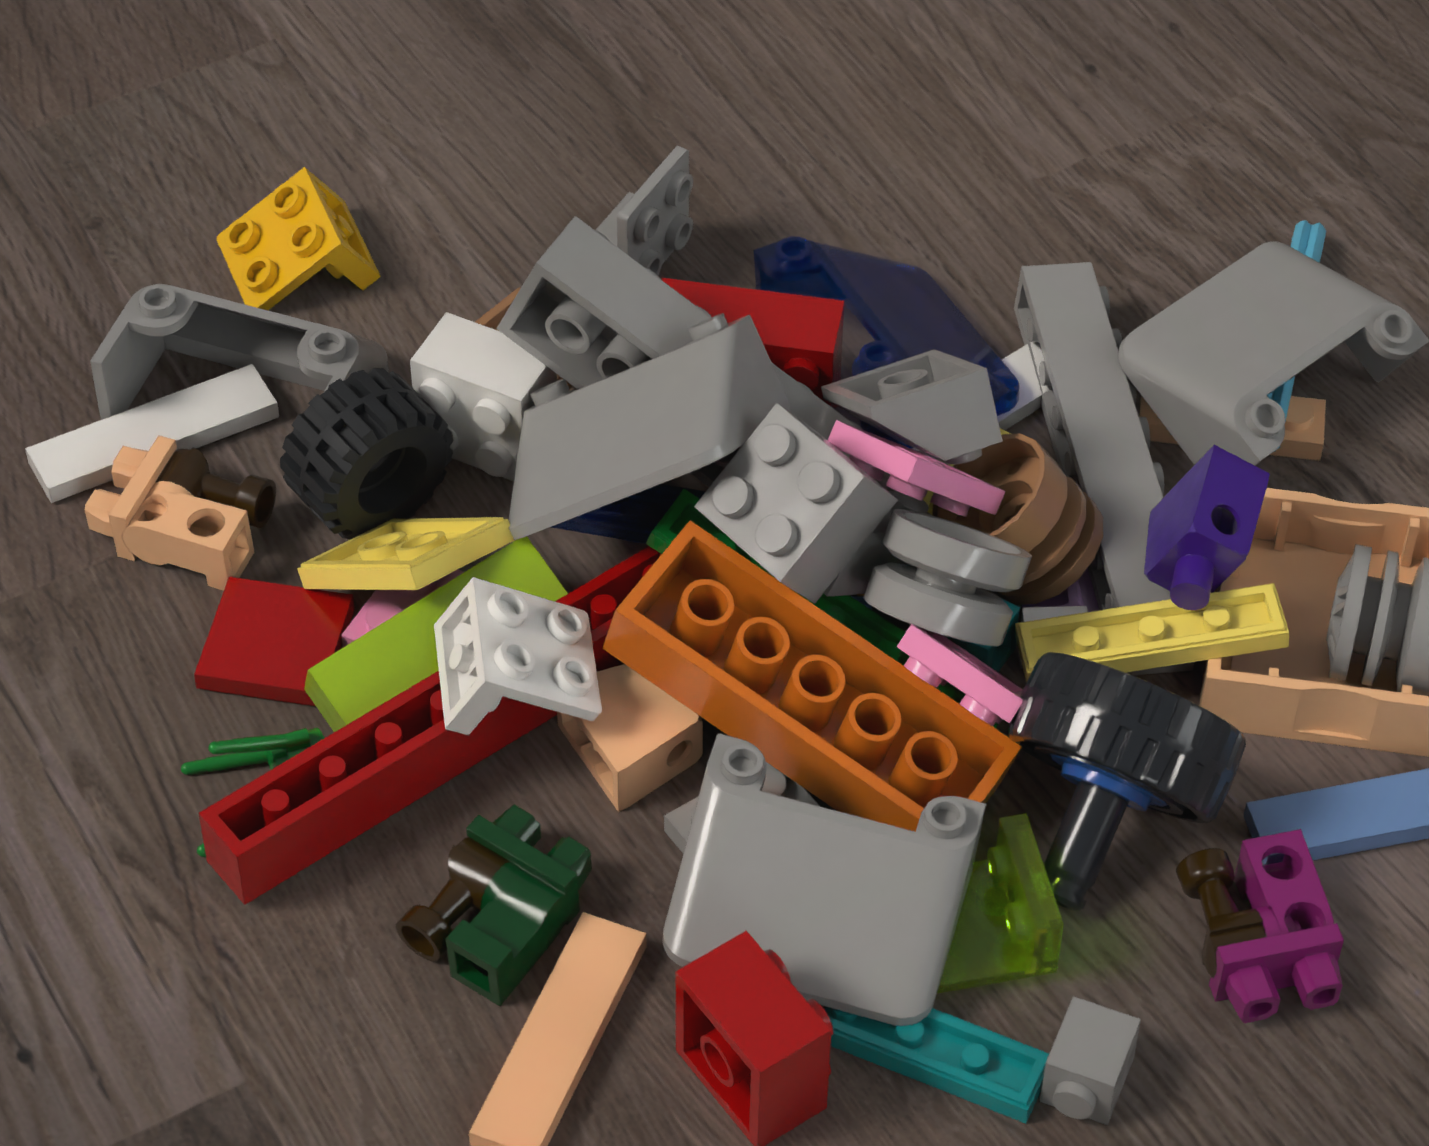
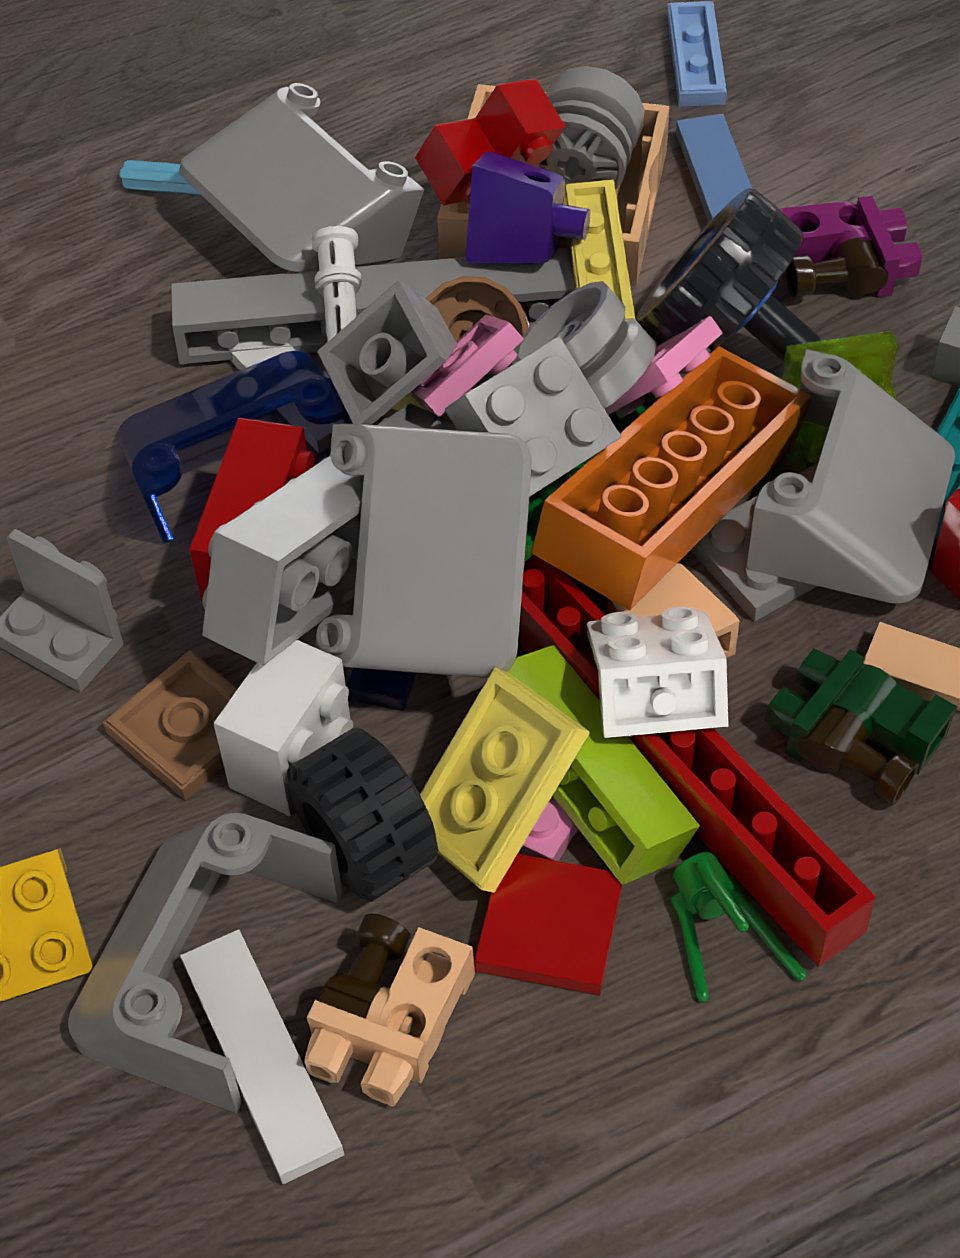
camera: 85 degrees left, 5 degrees up
(1083, 388) = (337, 275): none -> white pin
(1319, 503) = (512, 123): none -> red brick

